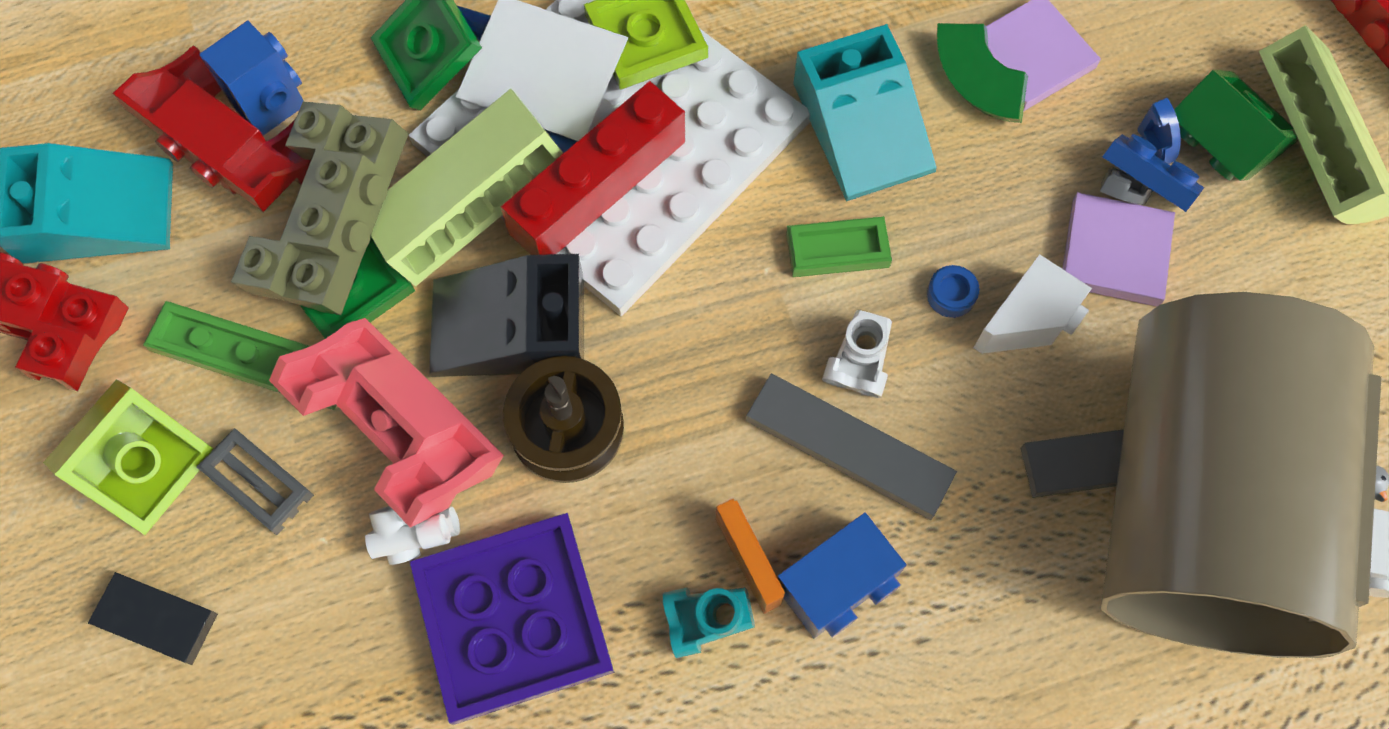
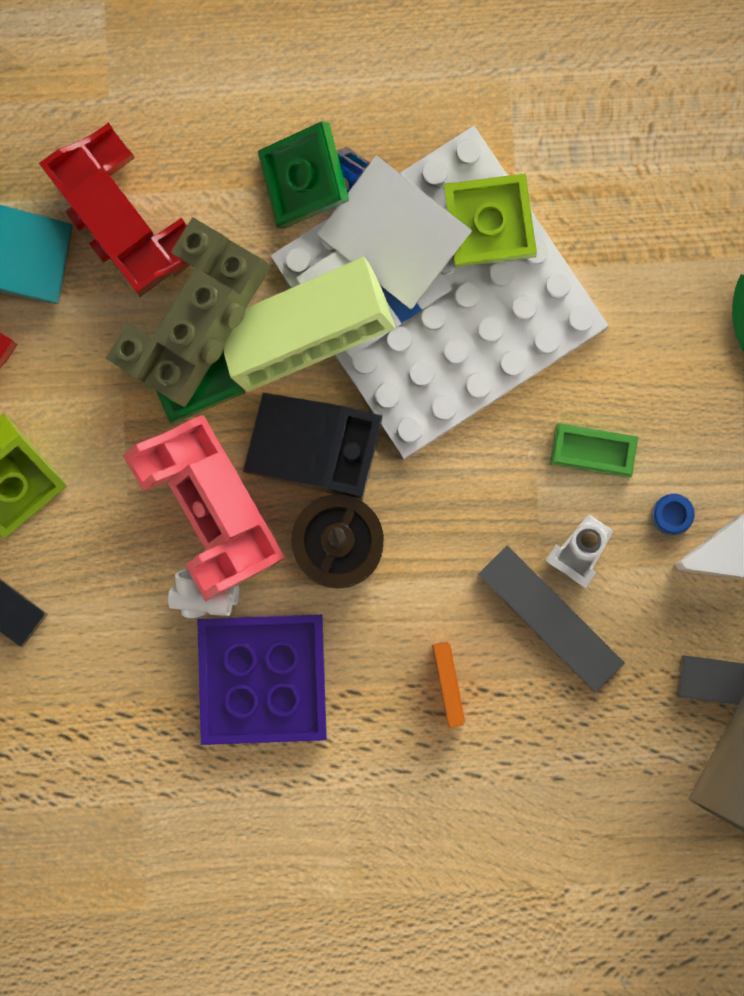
camera: 15 degrees right, 15 degrees up
(218, 344) = (92, 404): bright green tile -> none
(255, 76) = (157, 176): blue brick -> none
(286, 507) = (113, 547): dark grey tile -> none
(595, 172) = (414, 345): red brick -> none
(694, 618) = (395, 716): teal plate -> none
(841, 576) = (511, 719): blue brick -> none
(864, 111) = (650, 343): slope -> none

